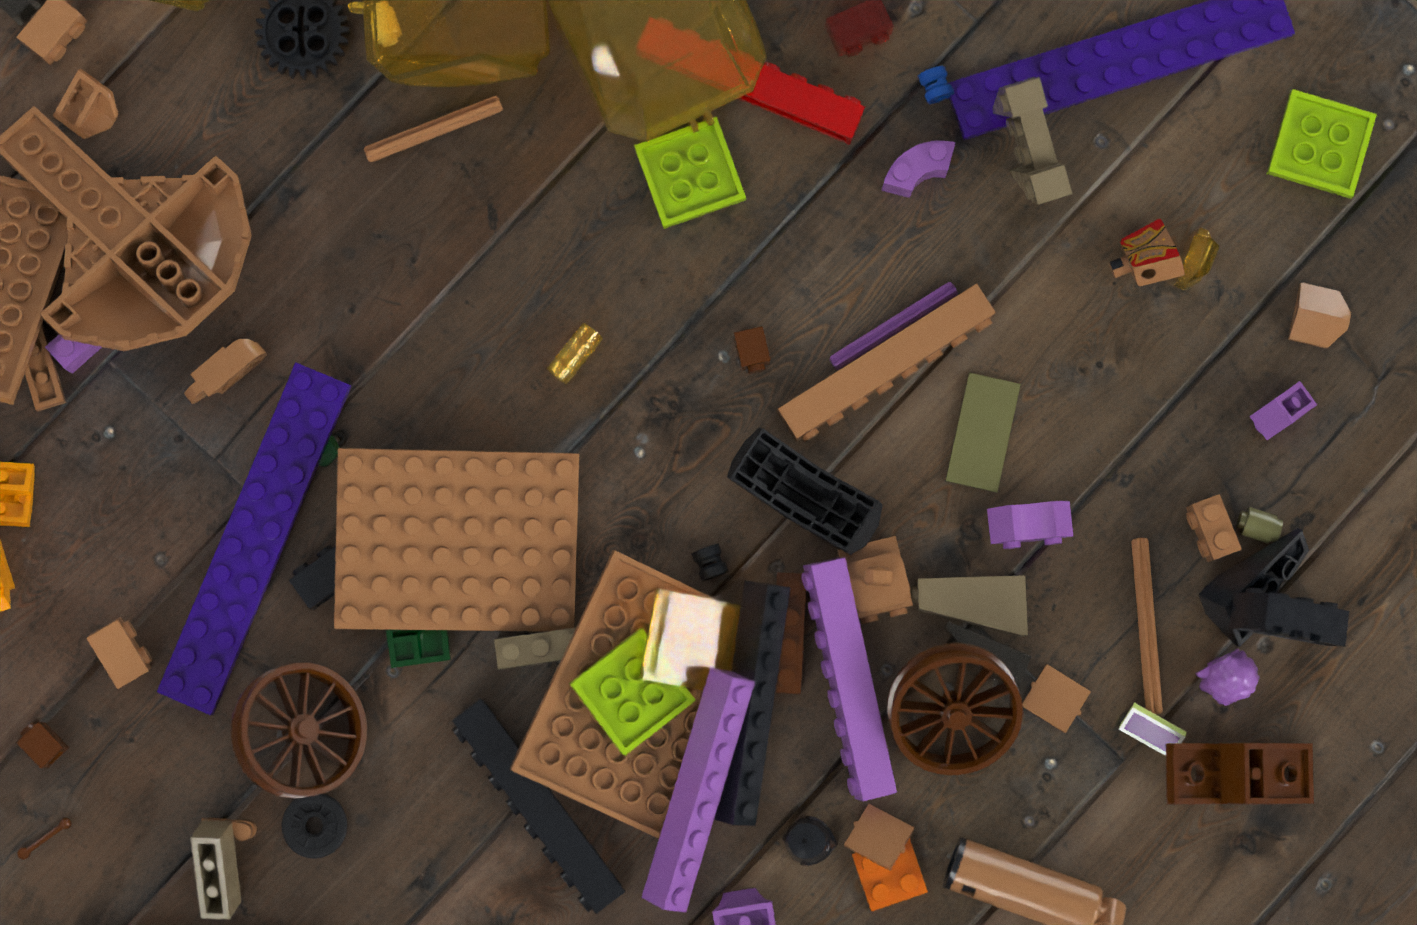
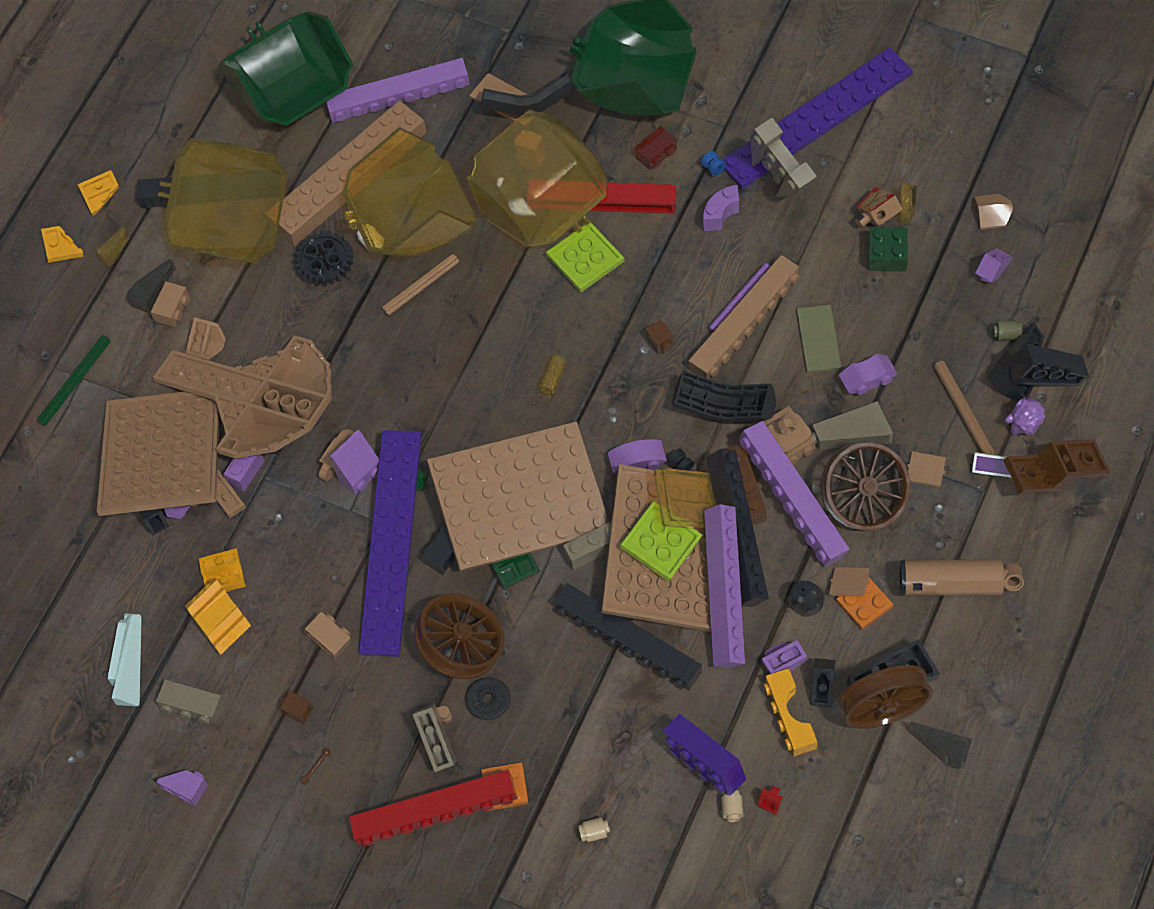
camera: 10 degrees left, 20 degrees down
(240, 403) = (355, 463): none -> medium lavender slope
(649, 533) = (640, 454): none -> medium lavender brick
(1138, 328) = (888, 249): none -> dark green brick
(1212, 528) = (980, 340): medium nougat brick -> none
(1321, 143) = (953, 120): lime plate -> none

